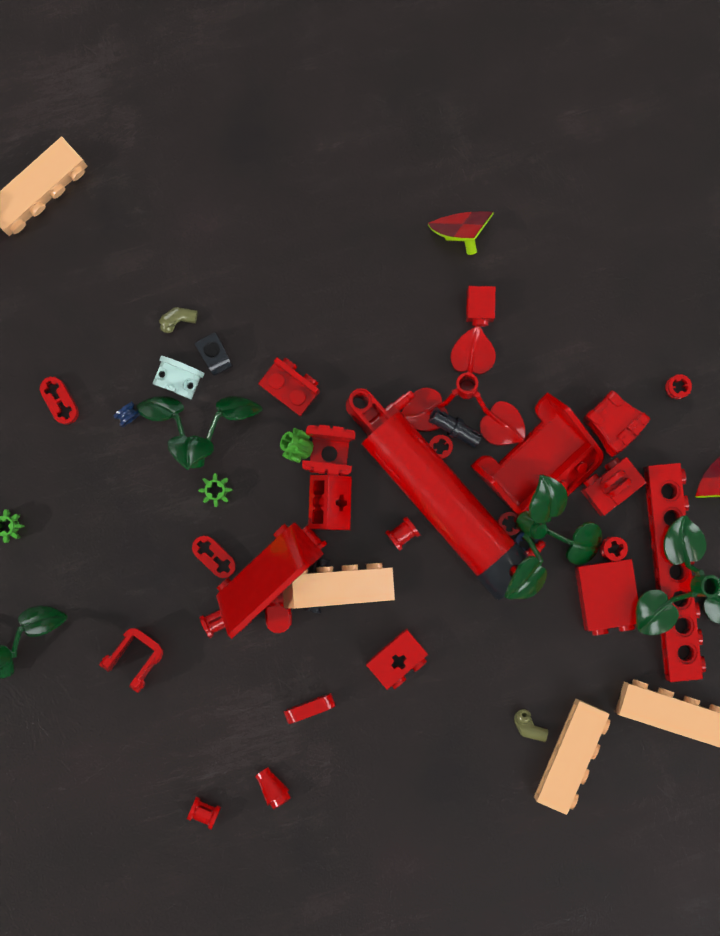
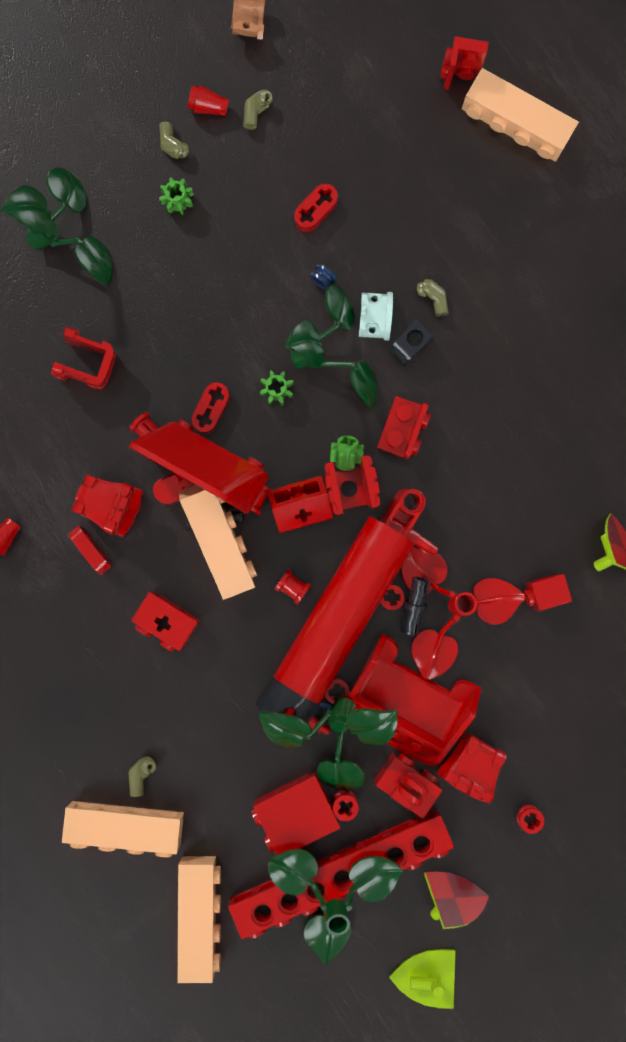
camera: 70 degrees right, 0 degrees up
(273, 677) = (108, 504): none -> red piece

